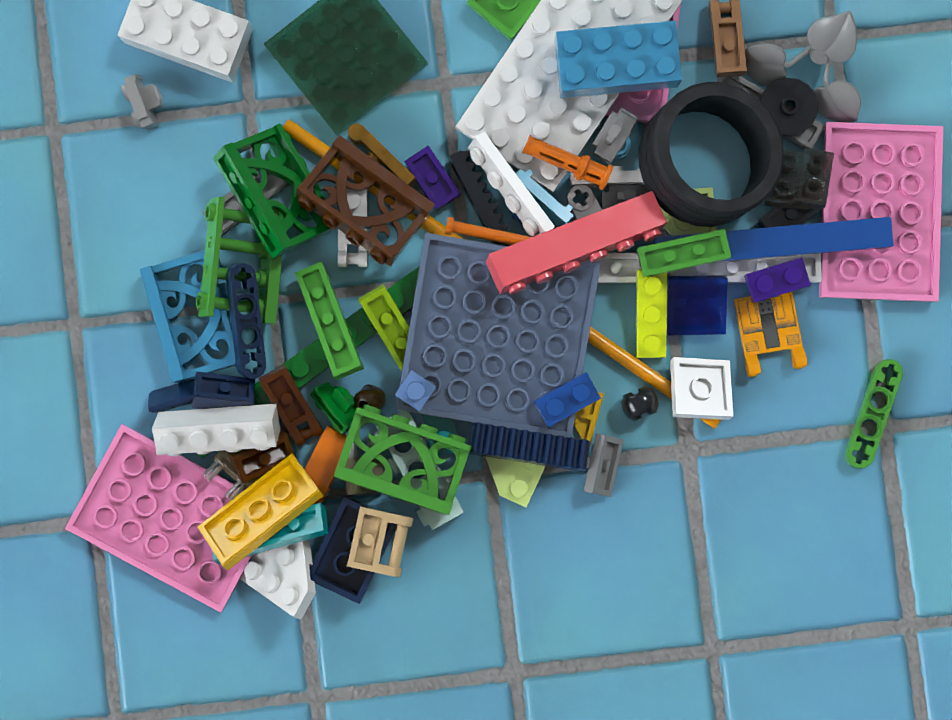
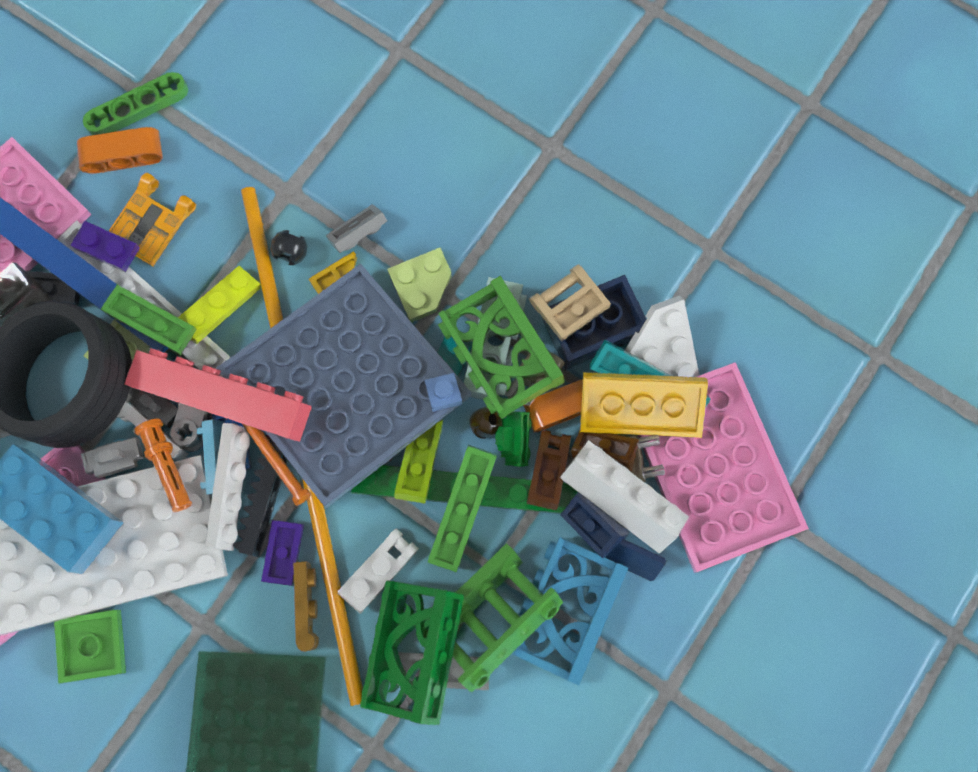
camera: 140 degrees left, 10 degrees down
(240, 322) = (523, 561): dark blue beam -> none
(357, 162) = (315, 551): reddish brown fence -> none
(529, 447) = (397, 284): dark blue gear -> none
(567, 399) = (336, 291): blue plate -> none
(696, 305) = (178, 279): clear blue plate -> none
(701, 388) = (234, 219): white plate -> none
(846, 365) = (119, 150): none -> orange beam

